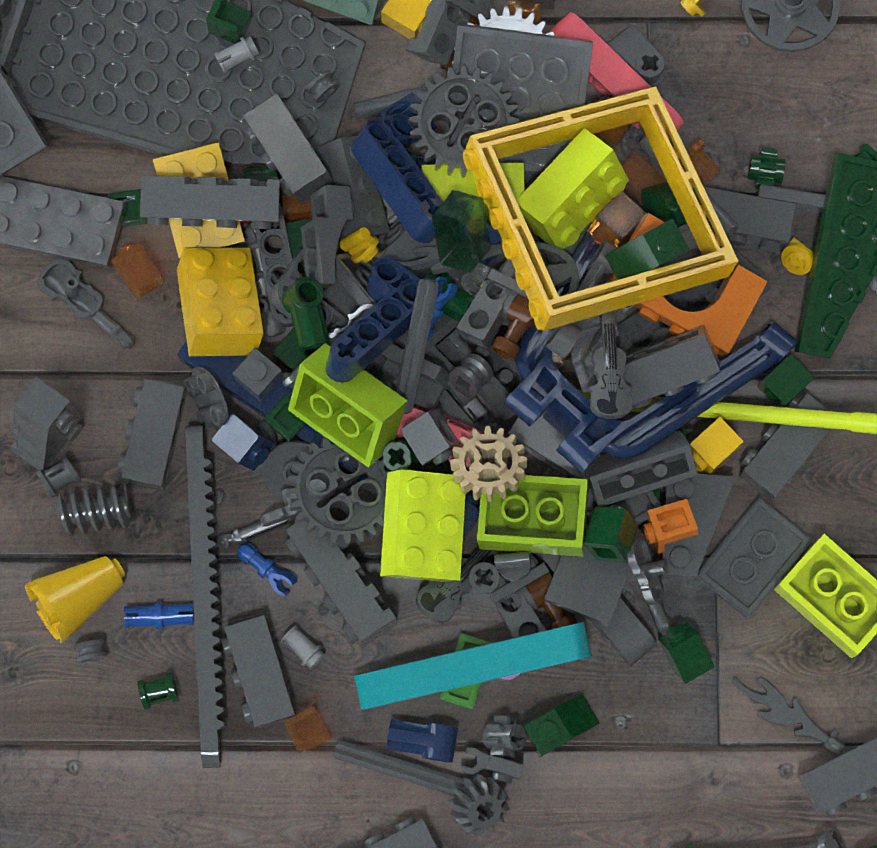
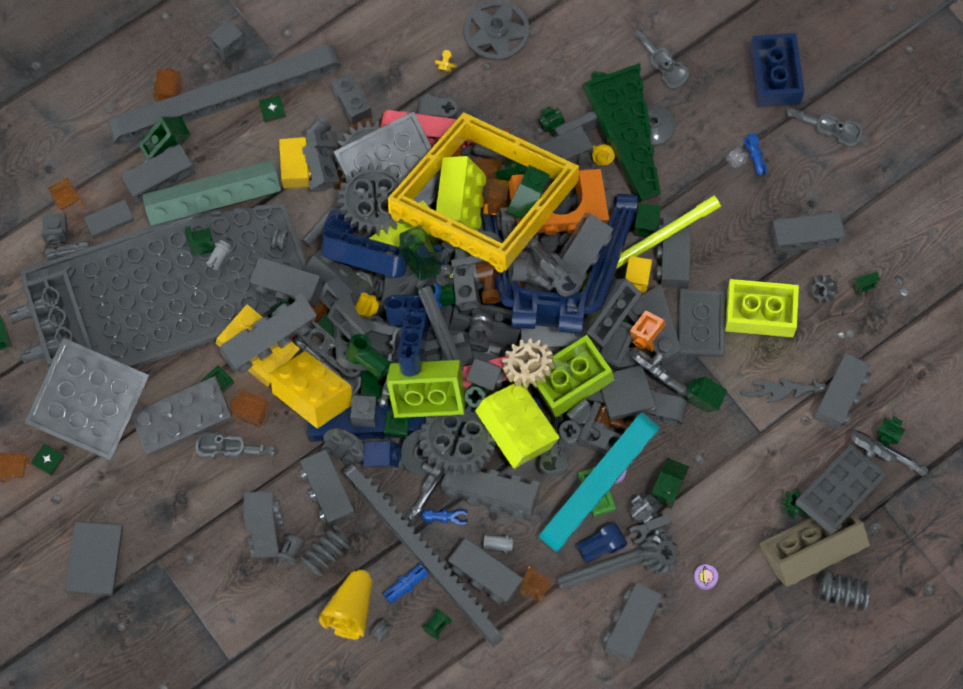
camera: 35 degrees left, 10 degrees down
(610, 534) = (621, 355): dark green brick -> none

